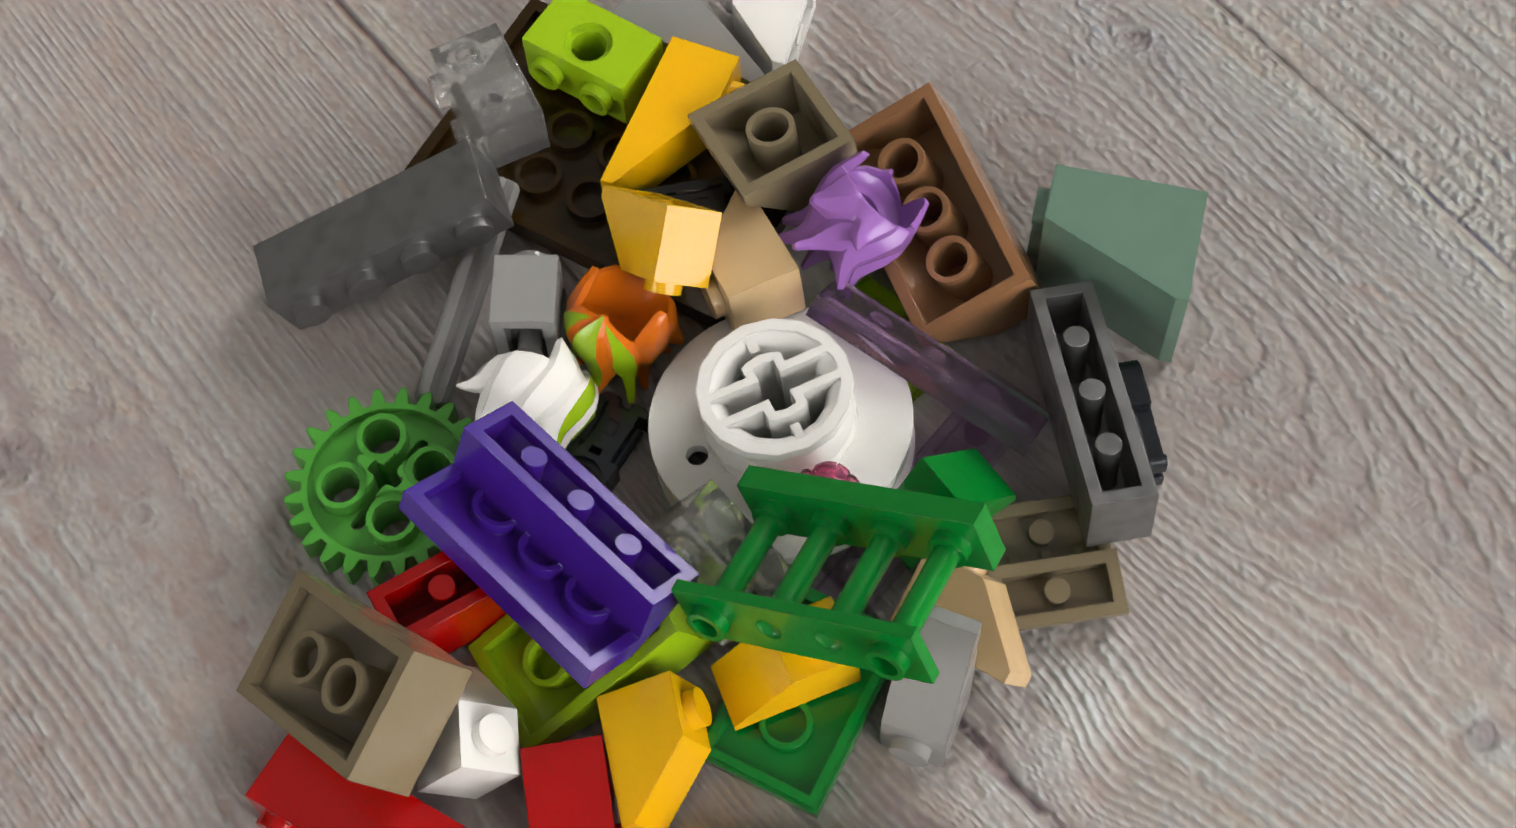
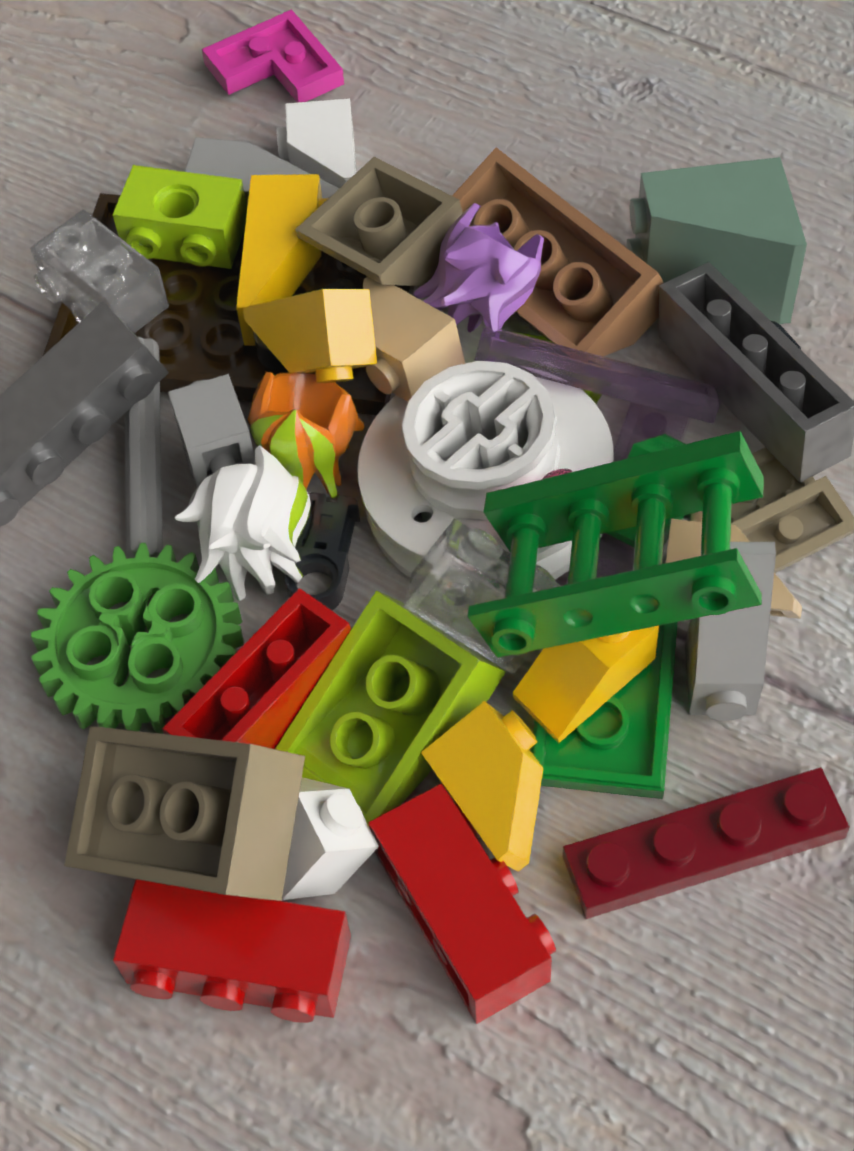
camera: 20 degrees left, 5 degrees down
(548, 543) = (327, 621): dark purple slope -> none

